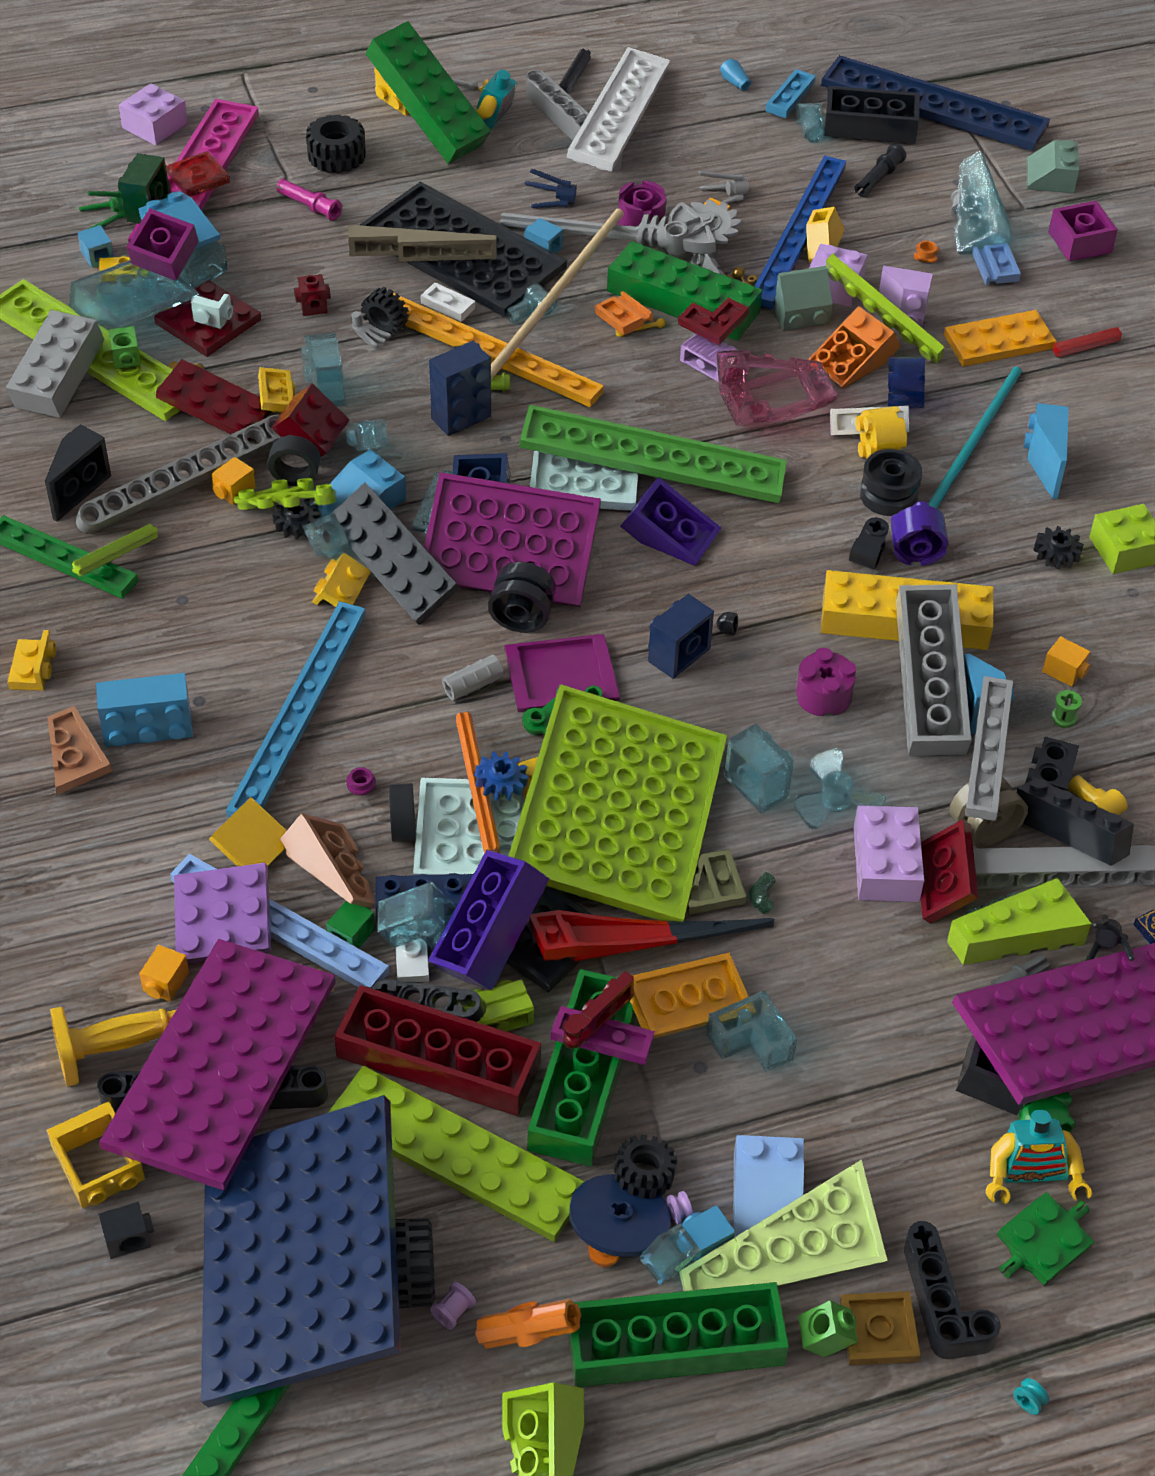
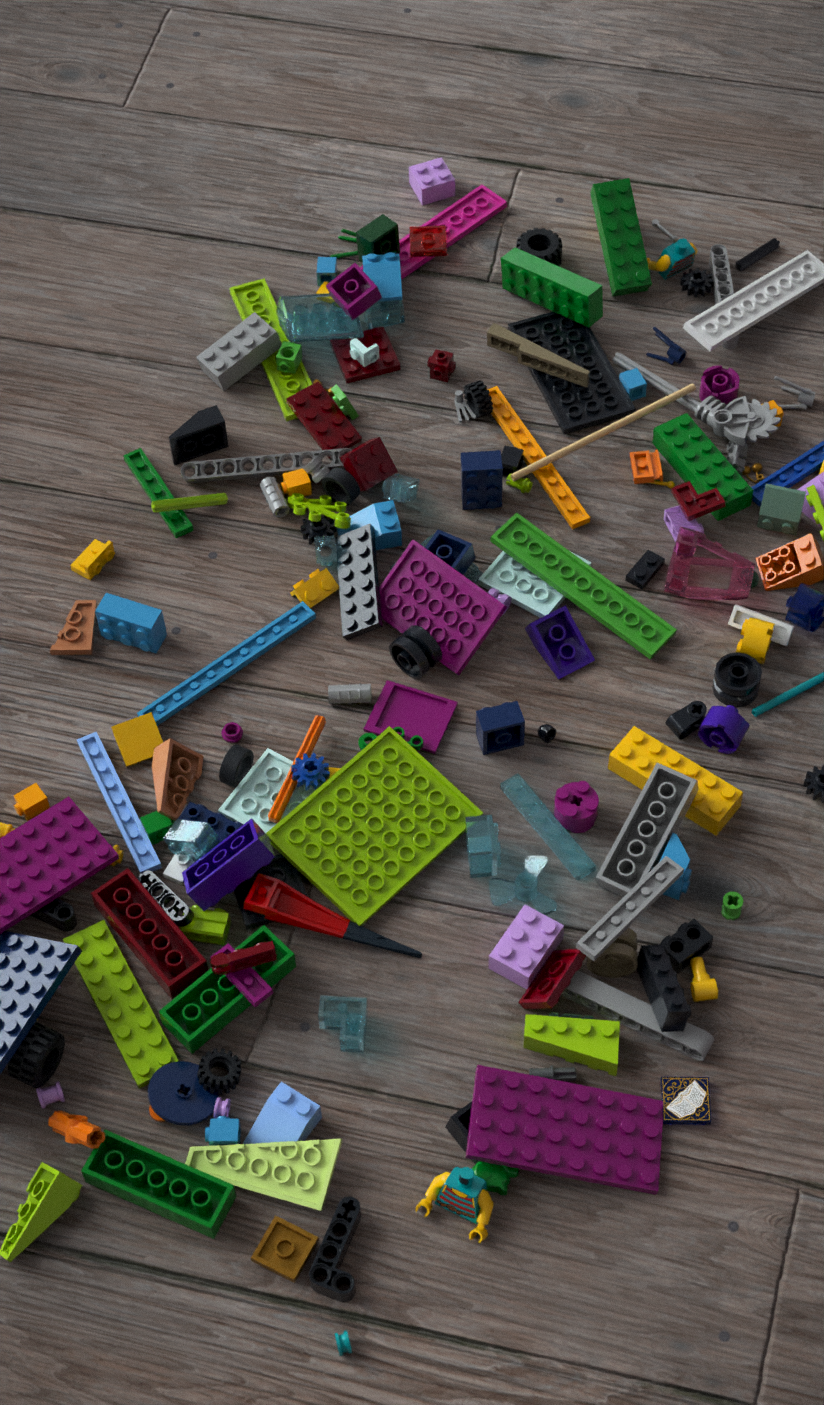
camera: 35 degrees right, 5 degrees up
(216, 504) = (274, 497): none -> light grey axle
(224, 906) = (88, 779): medium lavender plate -> none
(229, 368) = (343, 402): none -> bright green plate
(253, 452) = (316, 469): none -> light grey wheel
(275, 389) = (366, 428): yellow bracket -> none
(316, 201) = (496, 293): dark pink pin -> none
(324, 366) = (405, 427): clear light blue brick -> none
(385, 168) = (552, 287): none -> green brick
(448, 302) = (531, 407): white plate -> none
(531, 300) = (591, 427): clear light blue pin -> none
(533, 117) = (696, 282): none -> black gear
(669, 1254) = (190, 1133): clear light blue brick -> none
(685, 994) = (315, 974): light orange plate -> none
(701, 416) = (645, 569): none -> black plate
(716, 883) = (401, 911): olive wing -> none
(759, 893) = (424, 931): clear green arm -> none
(805, 720) = (548, 827): none -> clear light blue plate
(827, 1328) = (249, 1231): bright green brick -> none
(1044, 1238) = (431, 1252): green plate -> none
(1067, 661) = (760, 871): light orange brick -> none
(1109, 935) = (631, 1078): black plant -> none

